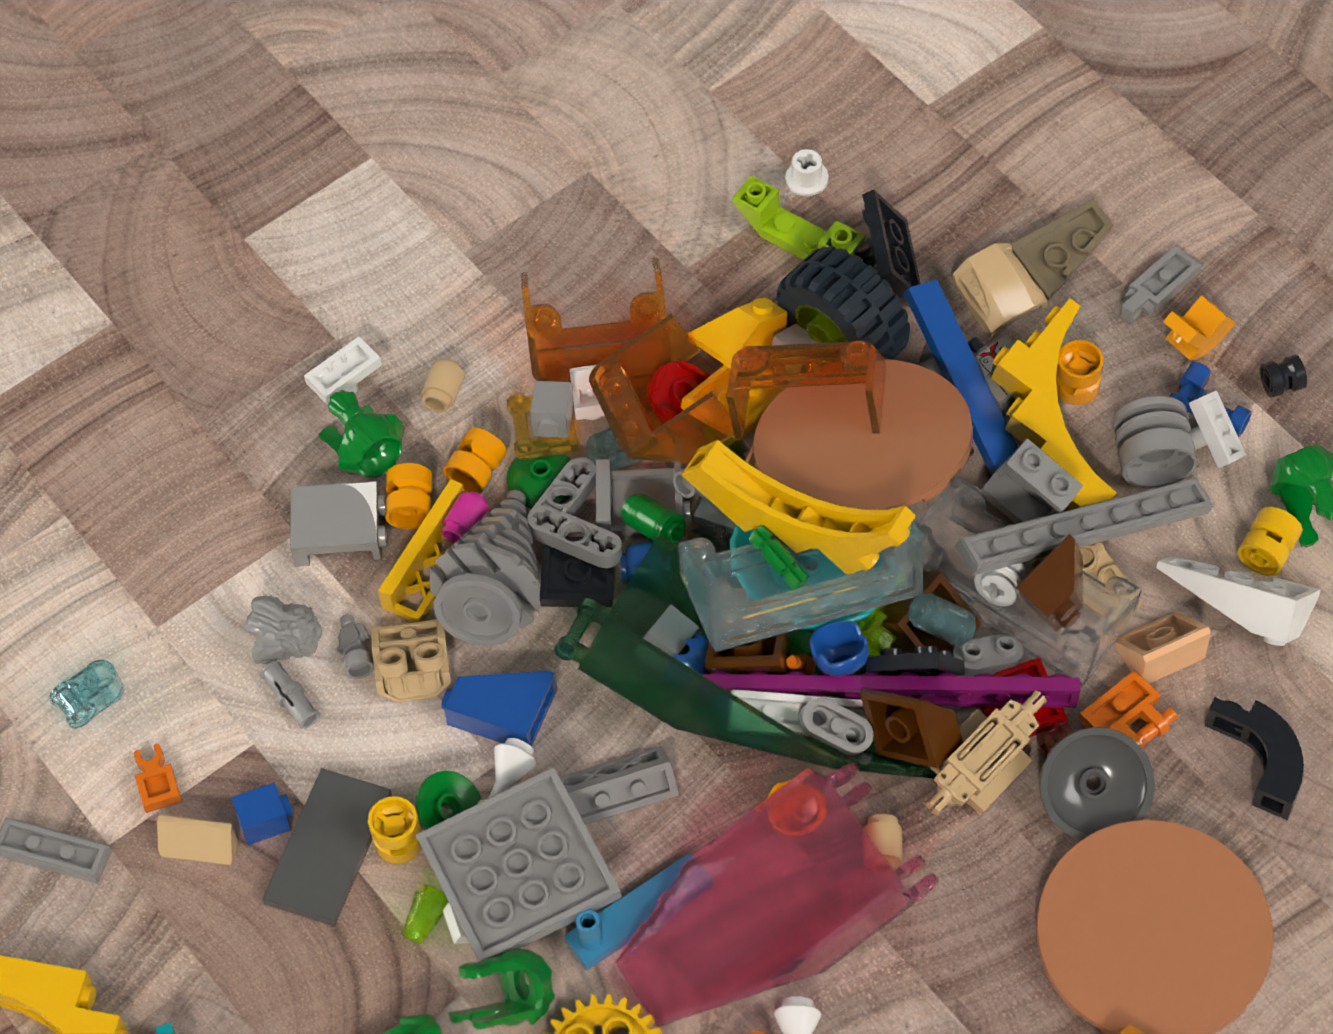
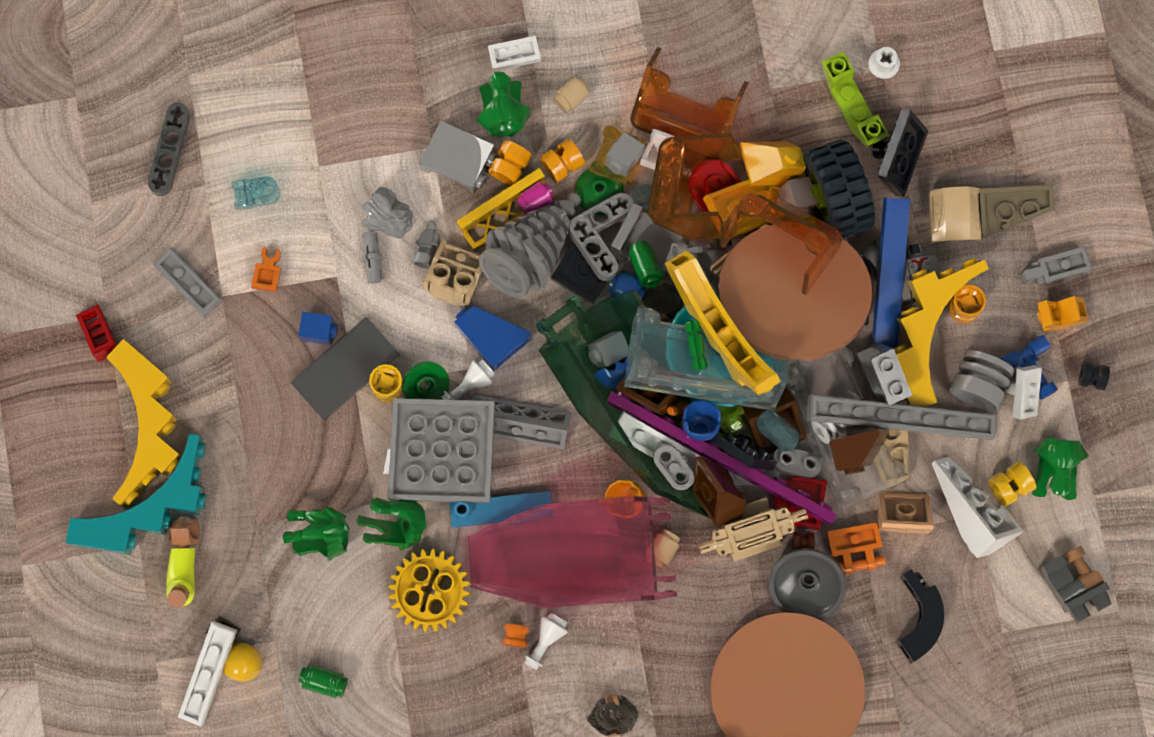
camera: 25 degrees right, 20 degrees up
(196, 839) = (271, 324): tan slope -> none
(424, 913) = (376, 444): clear neon green cone -> none

